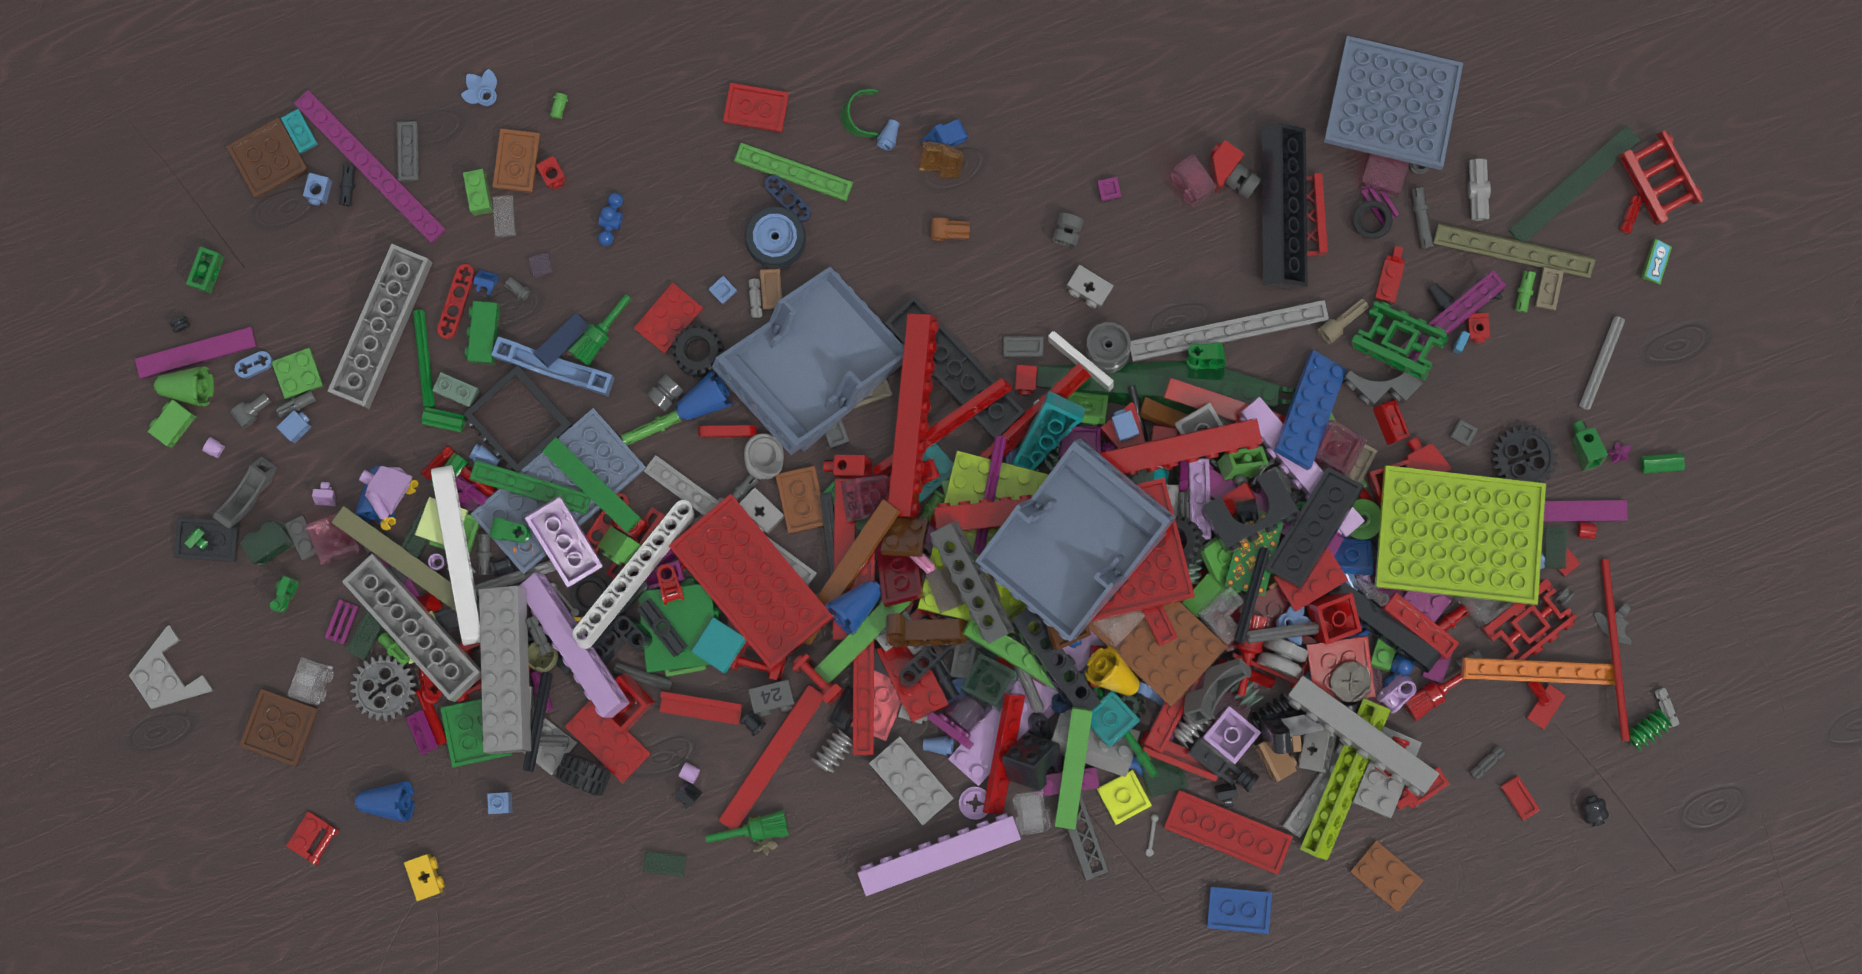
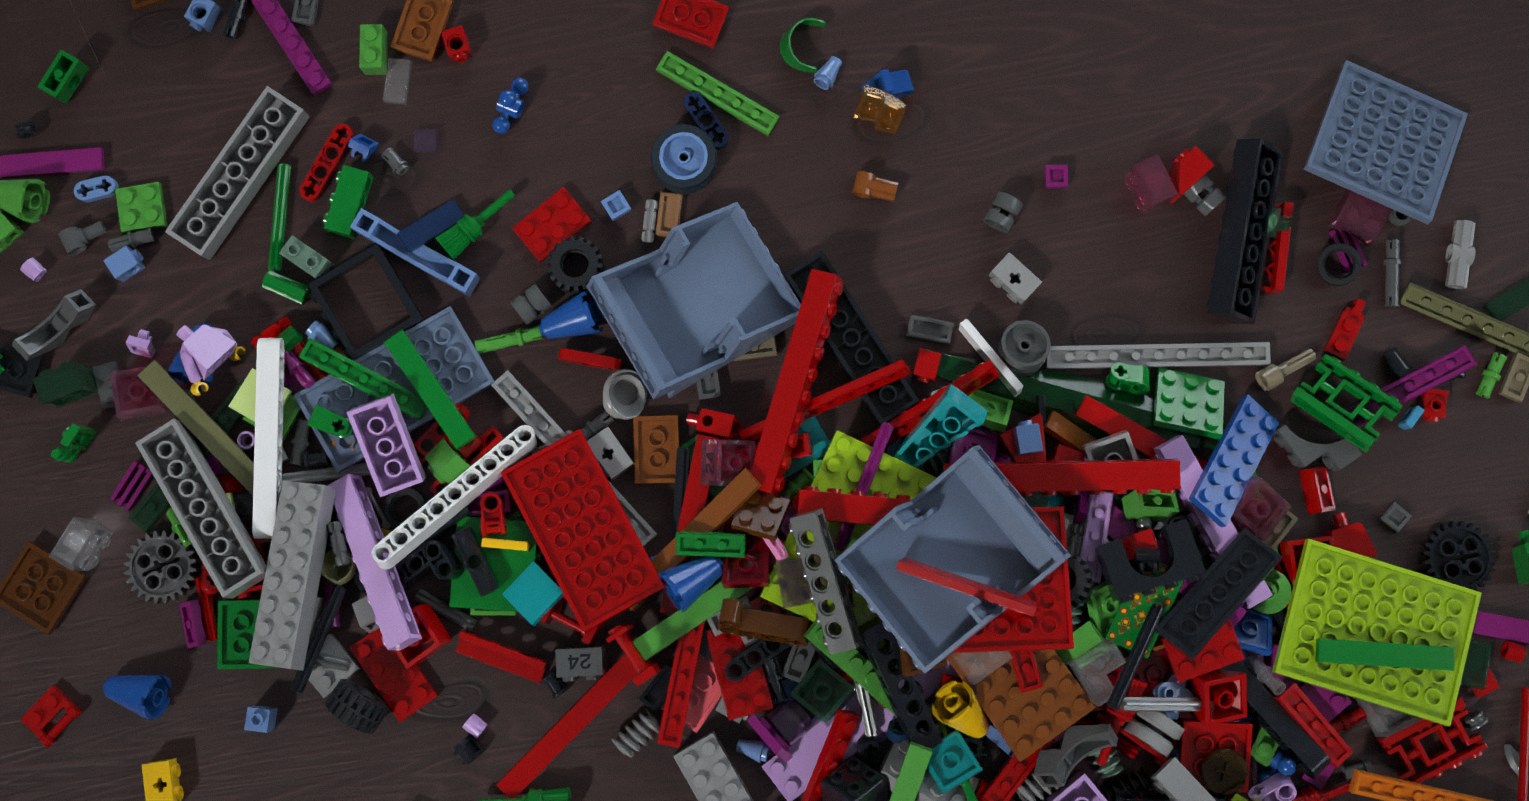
camera: 10 degrees right, 0 degrees up
(575, 693) = (365, 614): none -> light grey brick
(686, 607) = (506, 544): none -> yellow tile
(866, 571) = (711, 544): none -> green tile
(1093, 560) = (968, 586): none -> red tile
(1262, 367) = (1189, 403): none -> plate
(1310, 193) = (1277, 222): none -> clear green tile
(1469, 552) = (1385, 654): none -> green tile

